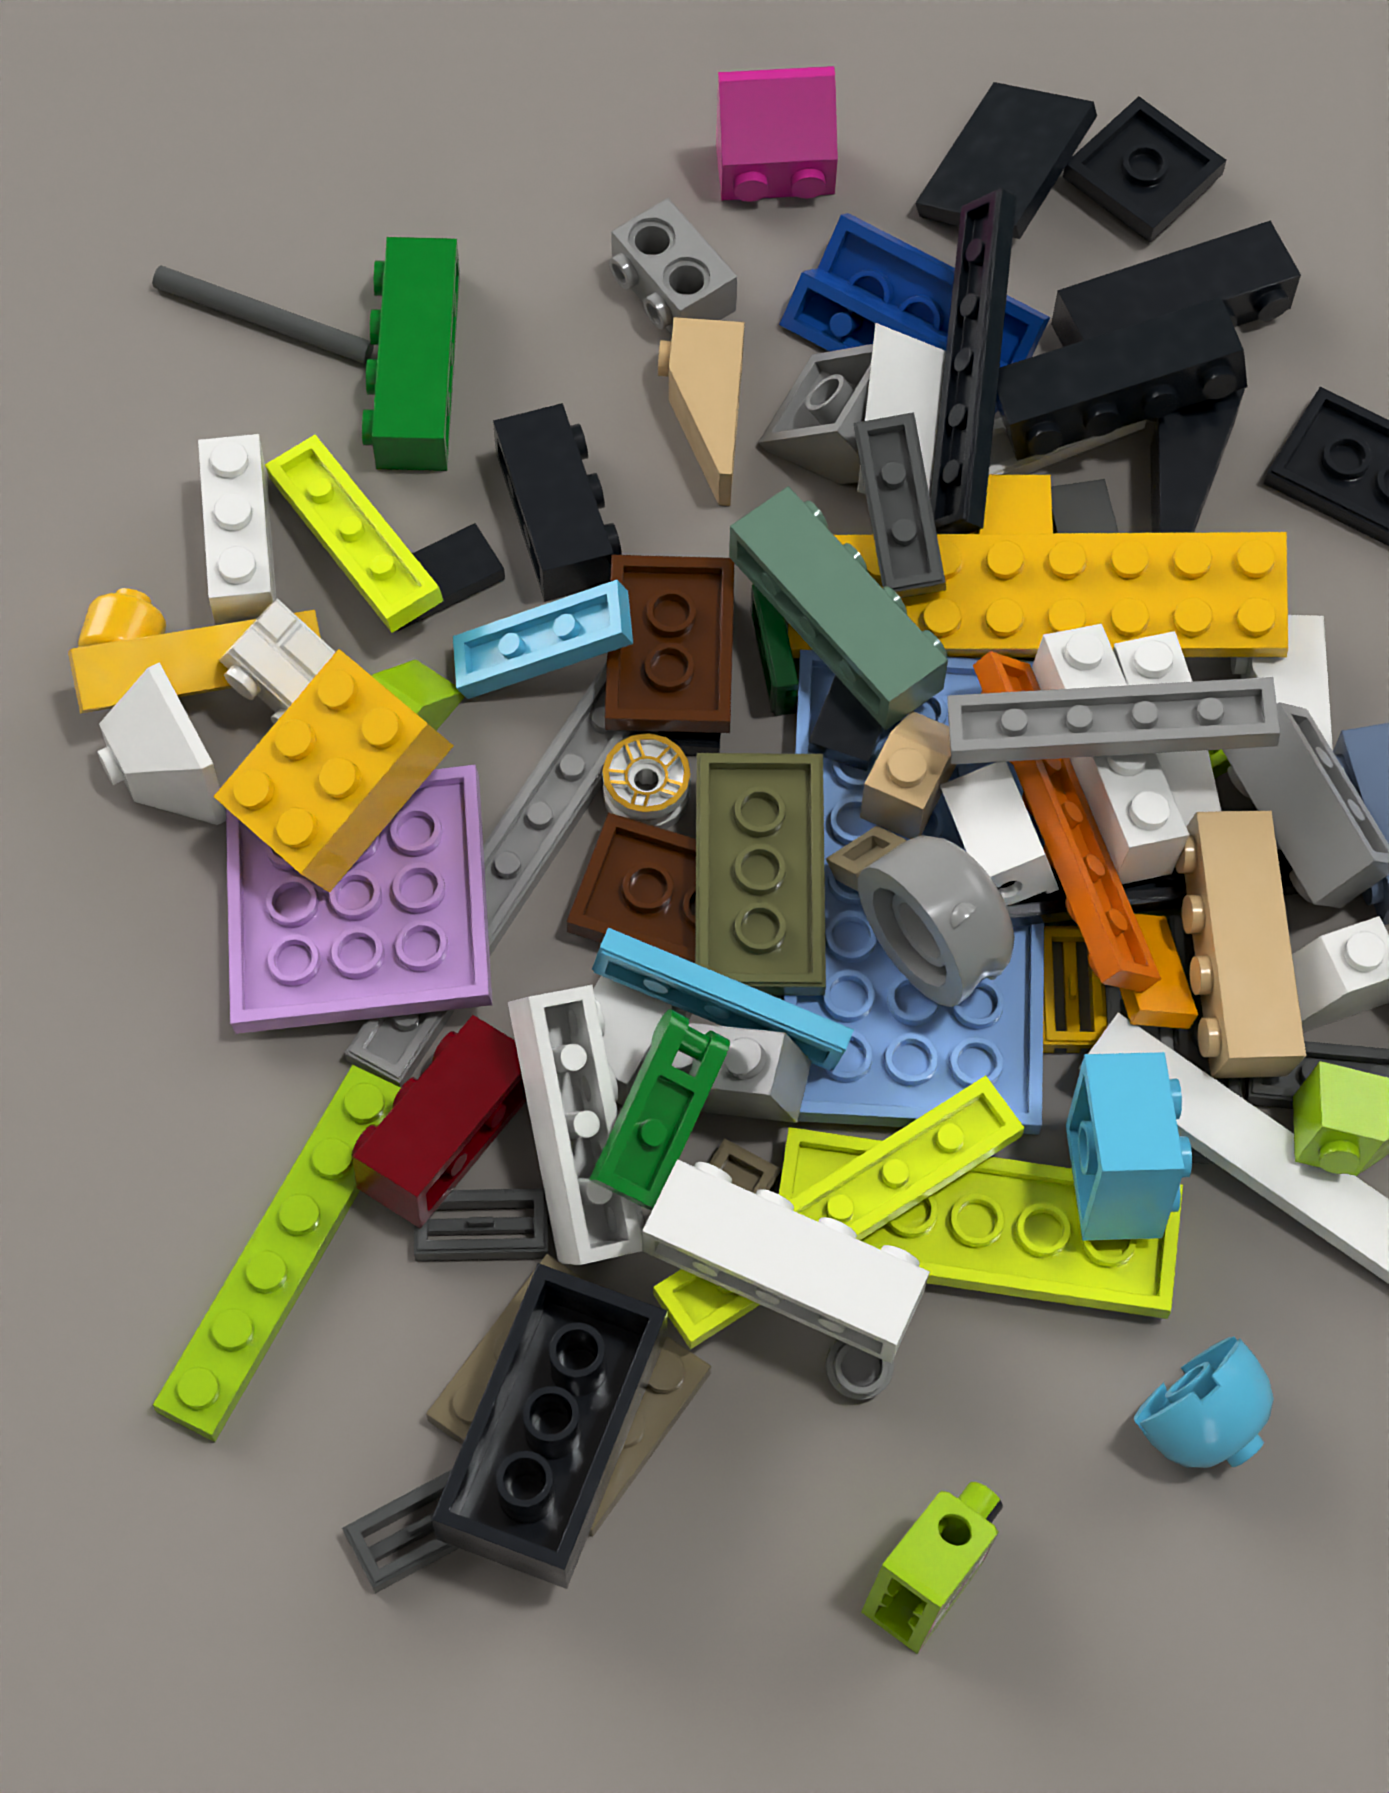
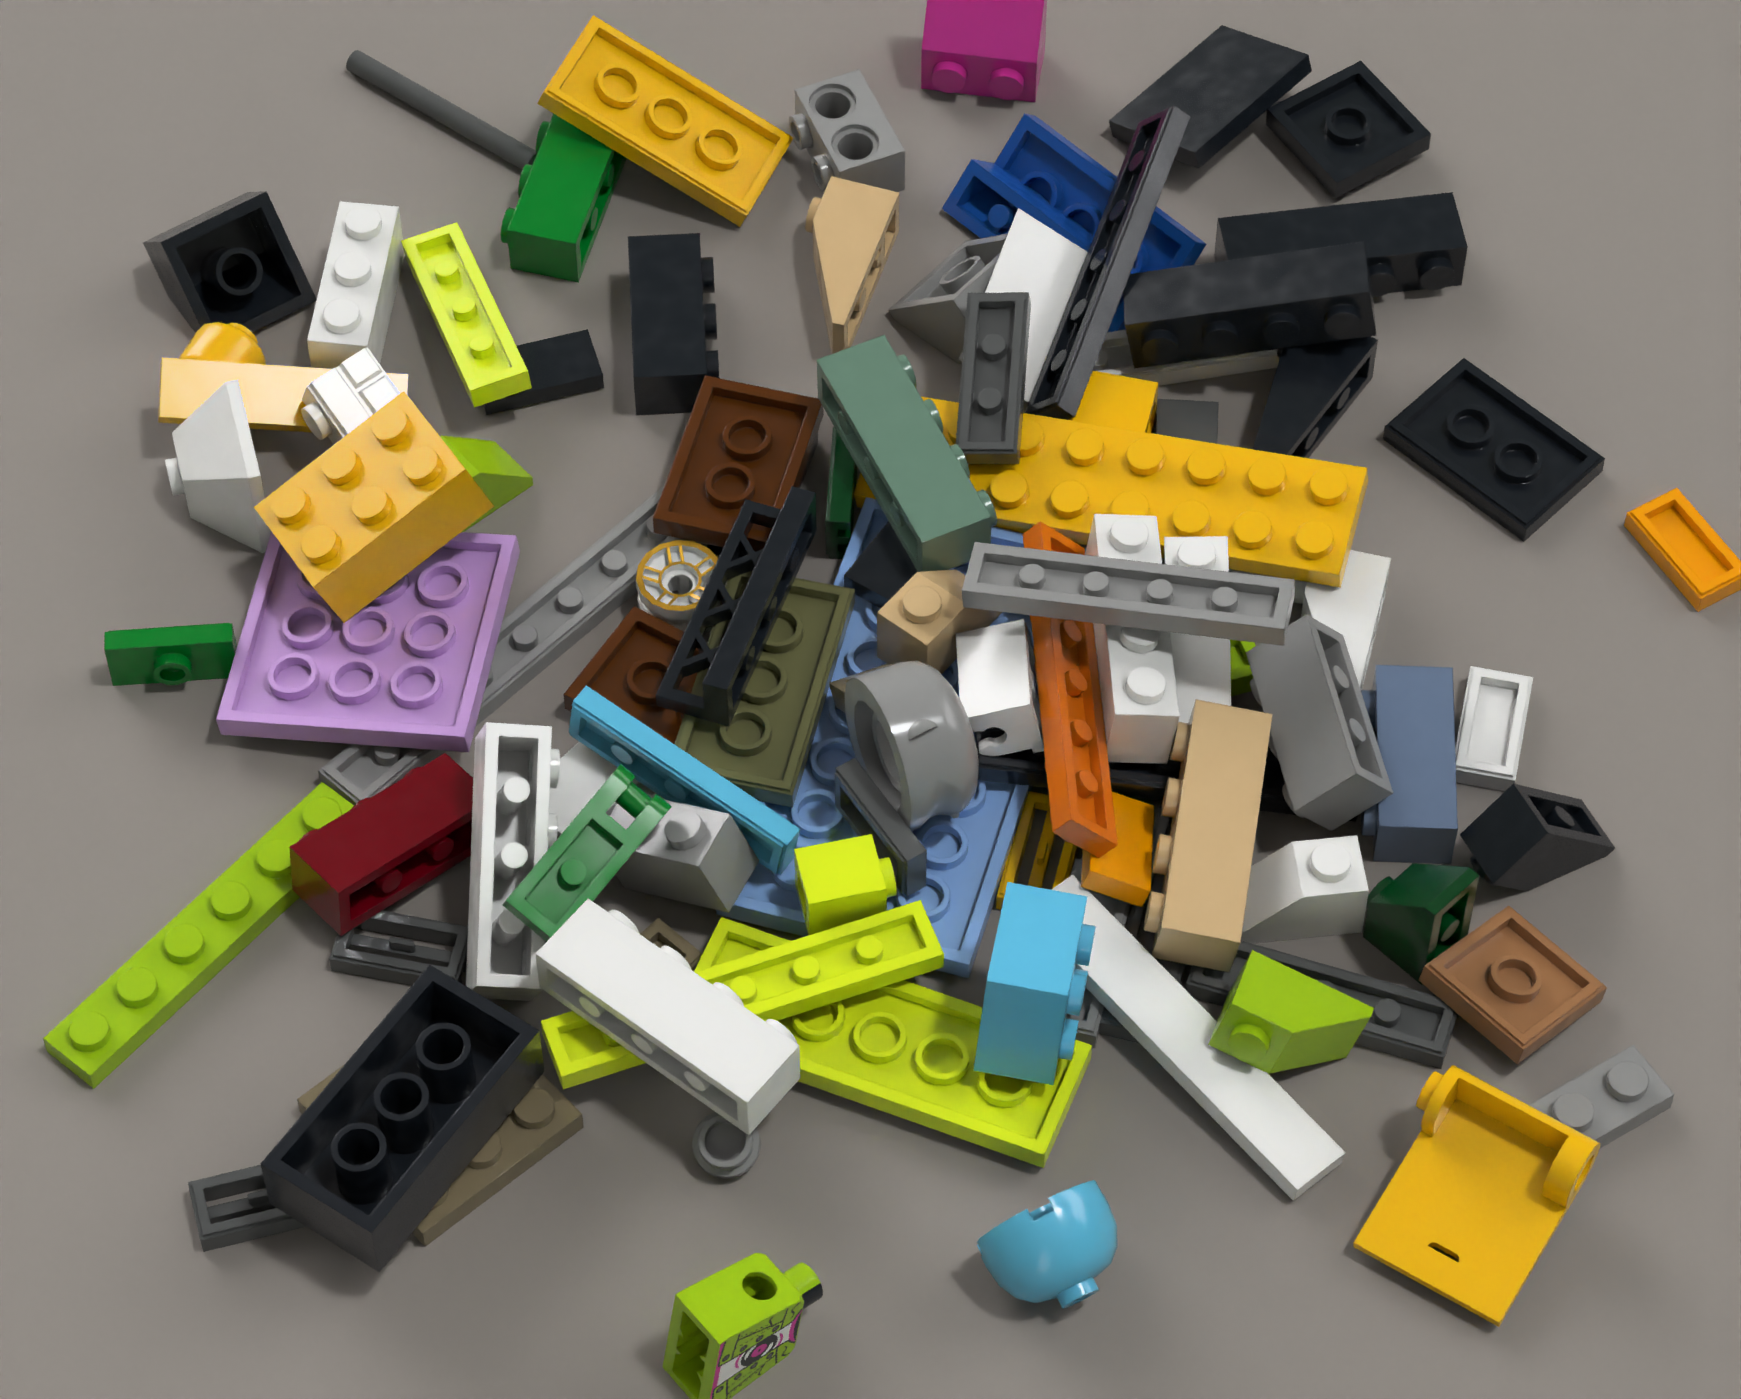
camera: 15 degrees right, 10 degrees down
(102, 525) = (231, 265): none -> black slope
(163, 960) = (170, 654): none -> green plate
(493, 288) = (665, 120): none -> yellow tile
(542, 639) = (615, 438): medium azure plate -> none
(741, 791) = (750, 615): none -> black fence
(904, 1075) = (842, 882): none -> neon yellow brick
(923, 1005) = (871, 813): none -> dark grey tile

